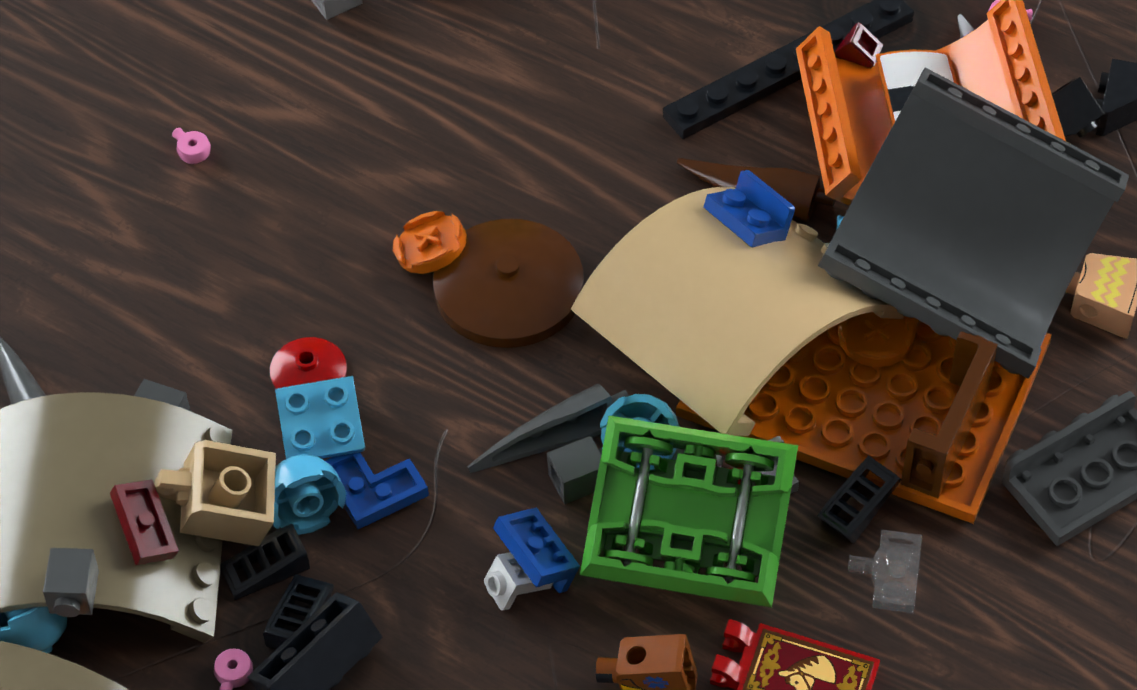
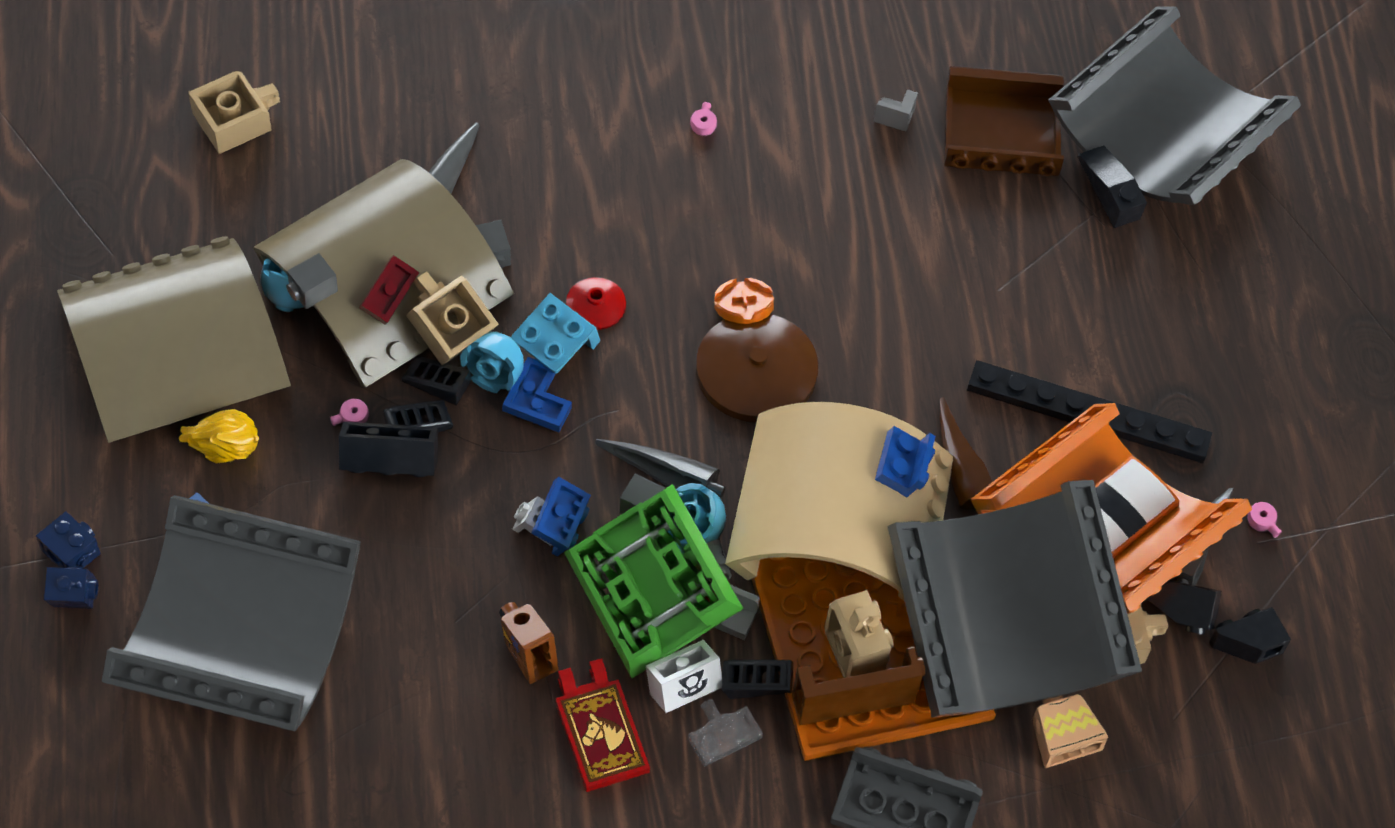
camera: 45 degrees right, 5 degrees up
(809, 559) = (684, 676): none -> white brick
(859, 47) = (1140, 443): dark red slope -> none
(899, 378) = (858, 635): none -> tan hinge

